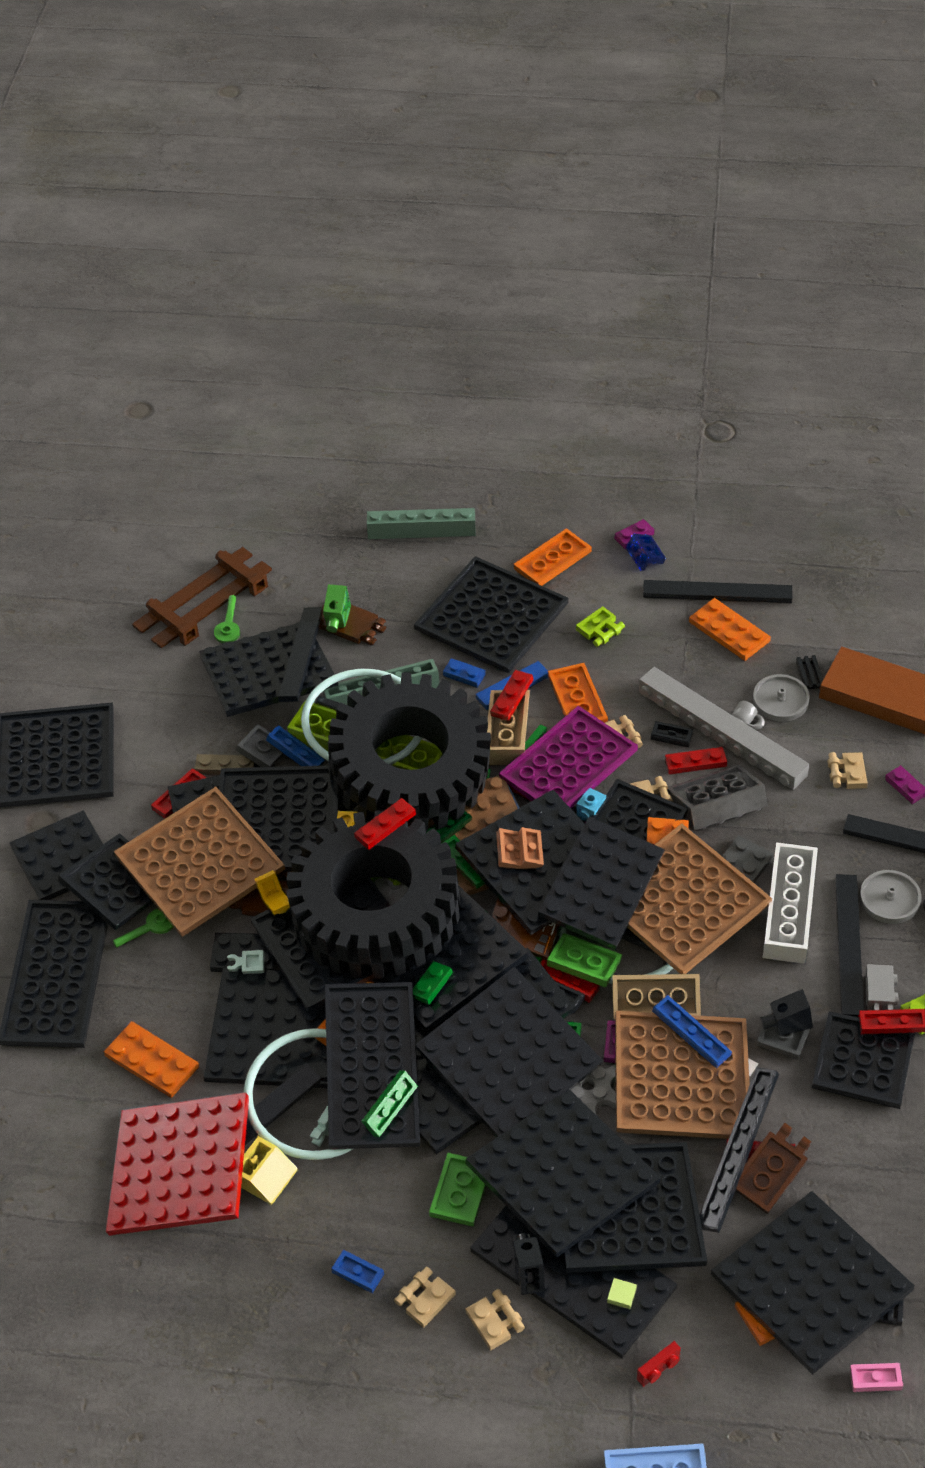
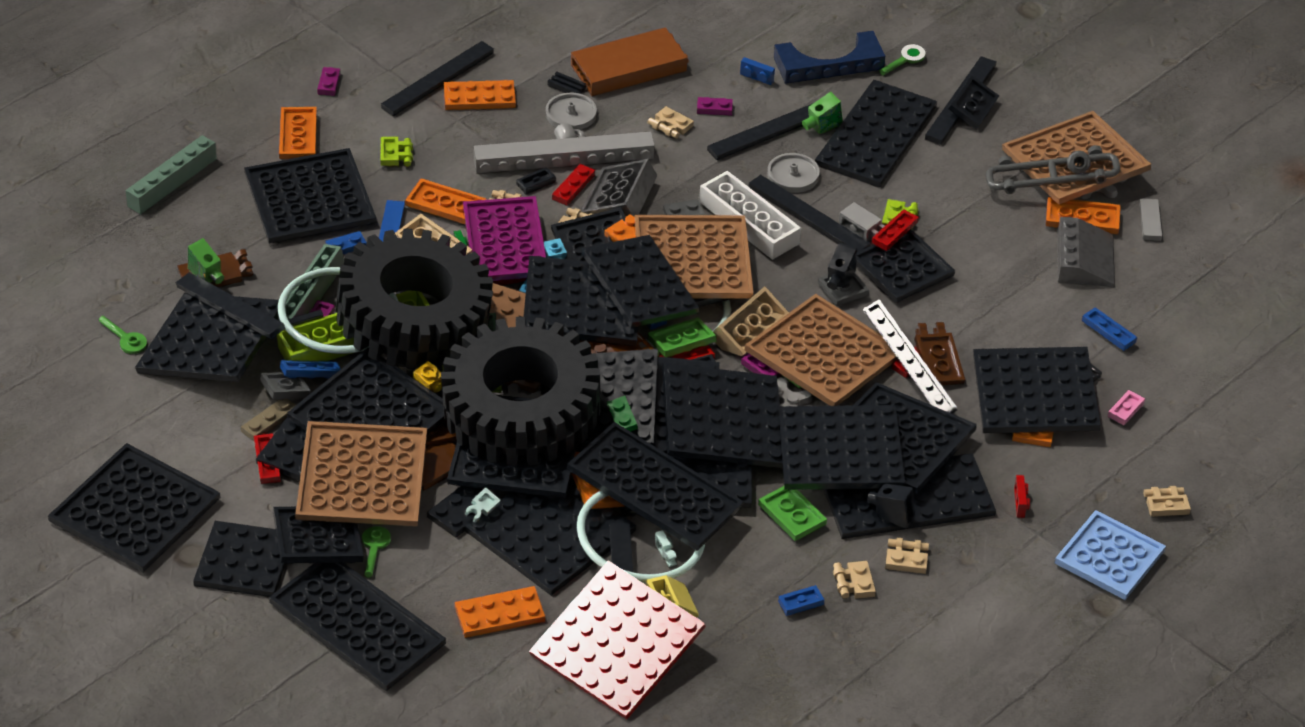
camera: 55 degrees left, 5 degrees down
(186, 626) = (91, 360): reddish brown fence -> none
(272, 893) = (442, 454): yellow bracket -> none
(385, 823) = (483, 337): red plate -> none
(389, 1103) = (702, 491): plate -> none
(511, 695) = (414, 219): red plate -> none
(519, 848) = (567, 298): nougat slope -> none
(622, 1293) = (957, 479): yellowish green tile -> none
(644, 551) = (354, 86): clear blue bracket -> none
(692, 1031) = (800, 321): blue tile -> none

